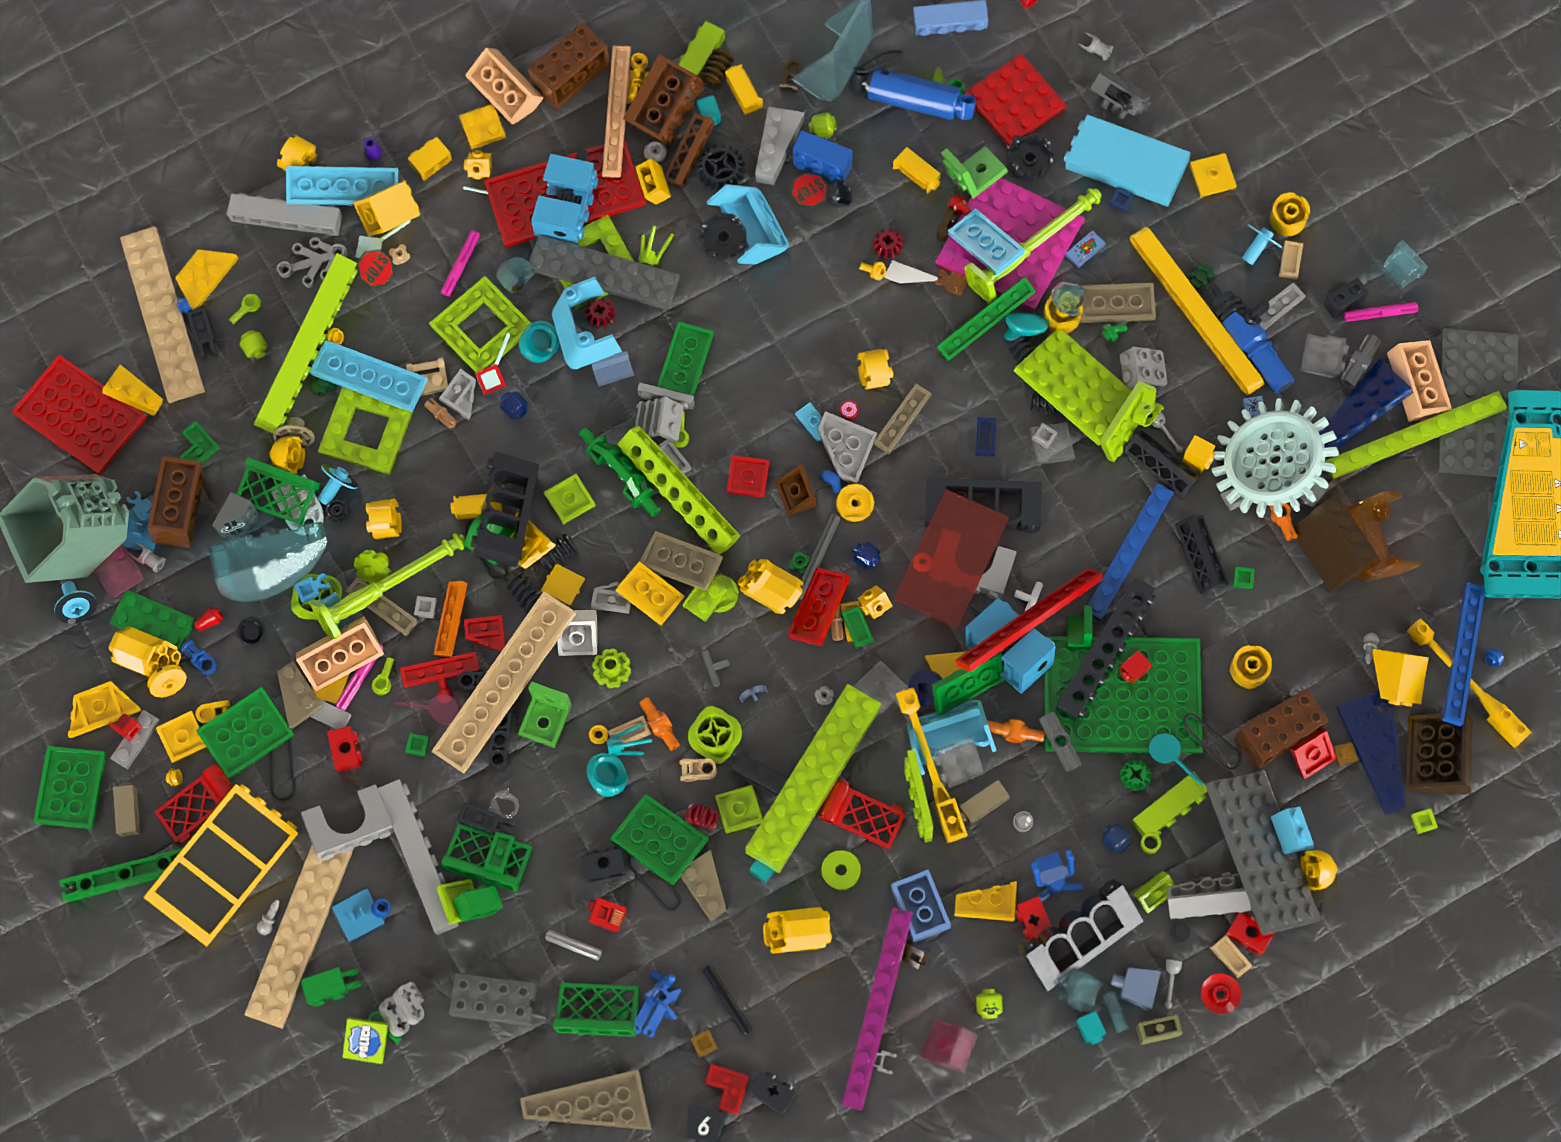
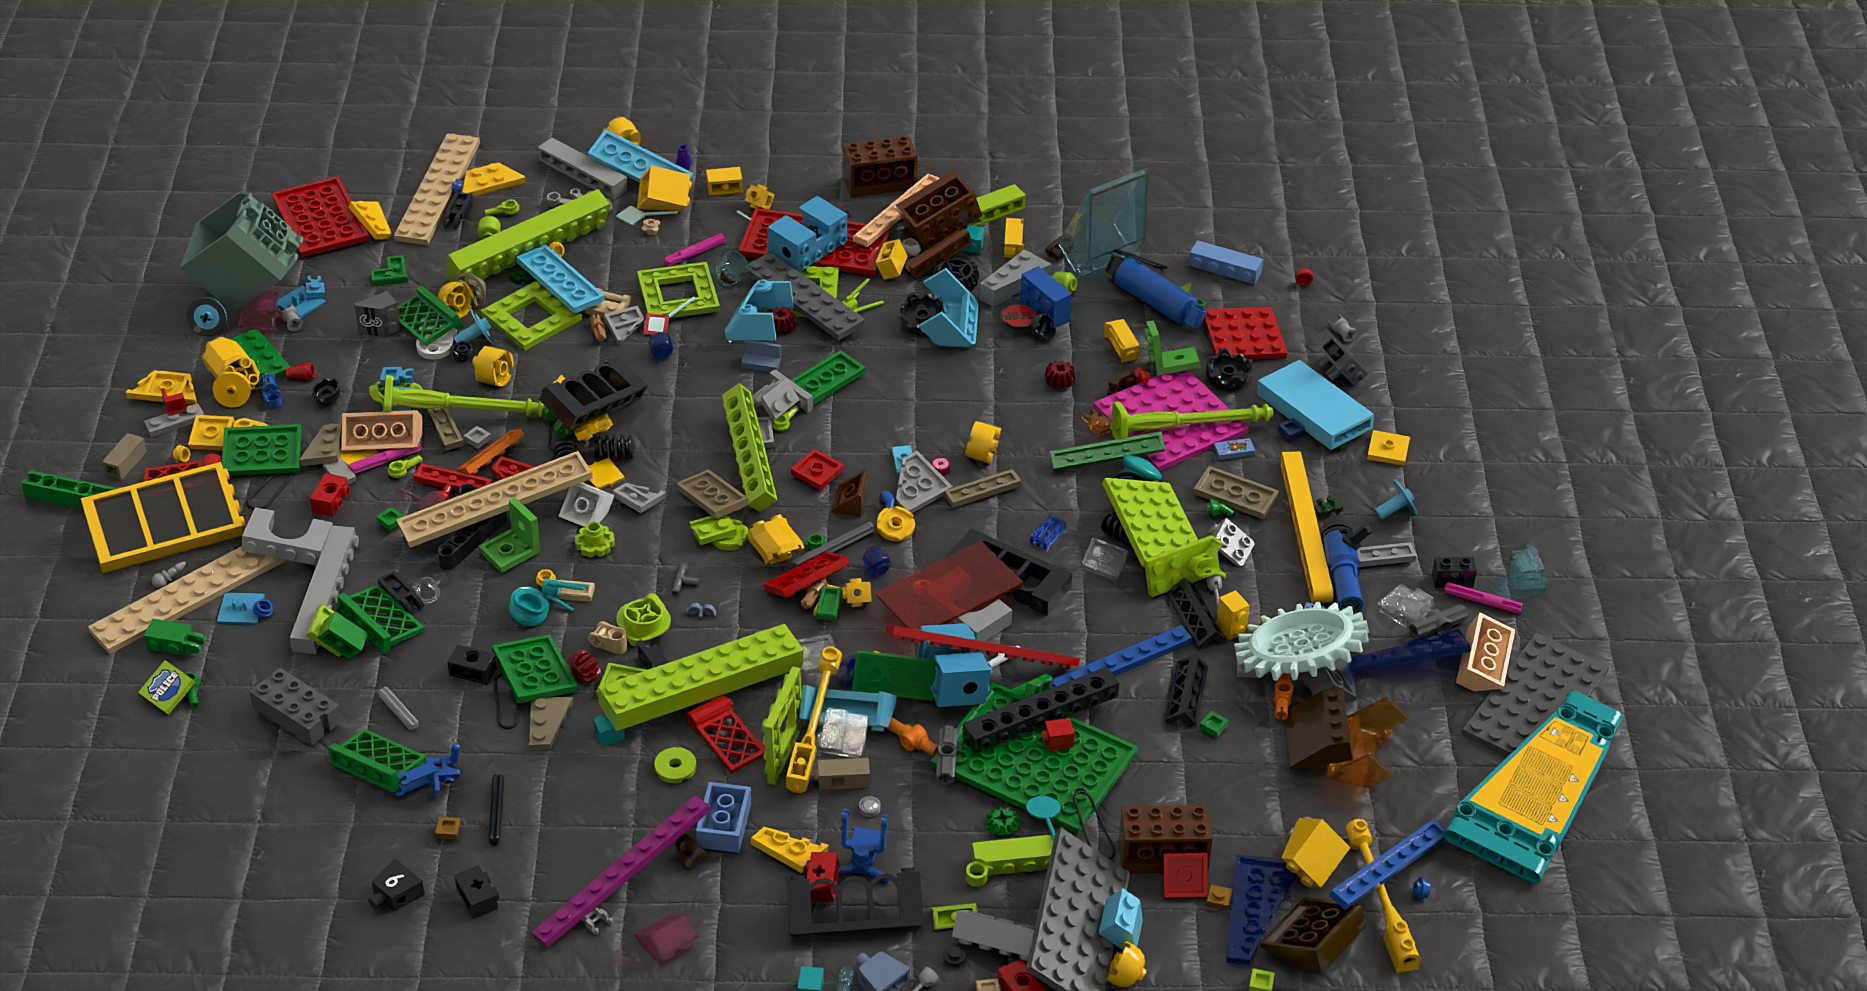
camera: 25 degrees right, 30 degrees down
(70, 787) = (96, 425): green plate -> none
(176, 502) = (339, 284): reddish brown brick -> none
(267, 564) = (370, 349): clear light blue windscreen -> none
(372, 566) = (458, 386): lime plant -> none
(375, 268) = (623, 224): piece -> none
(403, 1003) = (219, 675): light grey piece -> none
(482, 126) = (783, 181): yellow plate -> none
(499, 853) = (391, 611): green plate -> none
(504, 85) = (820, 162): light nougat slope -> none
(539, 341) = (714, 317): teal piece -> none
(569, 499) = (655, 421): lime plate -> none
(601, 1102) = (324, 828): dark tan wing -> none
(606, 914) = (444, 696): red piece -> none
(612, 455) = (716, 432): green plate -> none
(650, 593) = (668, 503): yellow plate -> none
(659, 724) = (602, 593): orange pin -> none
(715, 67) = (997, 217): dark brown piece -> none
(732, 1083) = (444, 869): red tile -> none
(797, 930) = (599, 781): yellow brick -> none
(877, 270) = (1037, 388): yellow plate -> none
(904, 274) = (1059, 400): white sticker -> none
(986, 241) = (1144, 397): medium azure plate -> none
(989, 1004) = (728, 920): lime head -> none
(1044, 435) = (1100, 546): light grey tile -> none
(1060, 320) = (1181, 474): yellow brick -> none
(1068, 297) = (1189, 453): clear light blue piece -> none
(1082, 991) = (825, 952): clear light blue piece -> none
(1116, 838) = (946, 854): dark blue head -> none
(1250, 656) = (1171, 784): yellow brick -> none
(1289, 214) = (1439, 495): yellow brick -> none
(1290, 260) = (1421, 530): tan tile -> none
(1417, 434) = (1455, 691): lime plate -> none

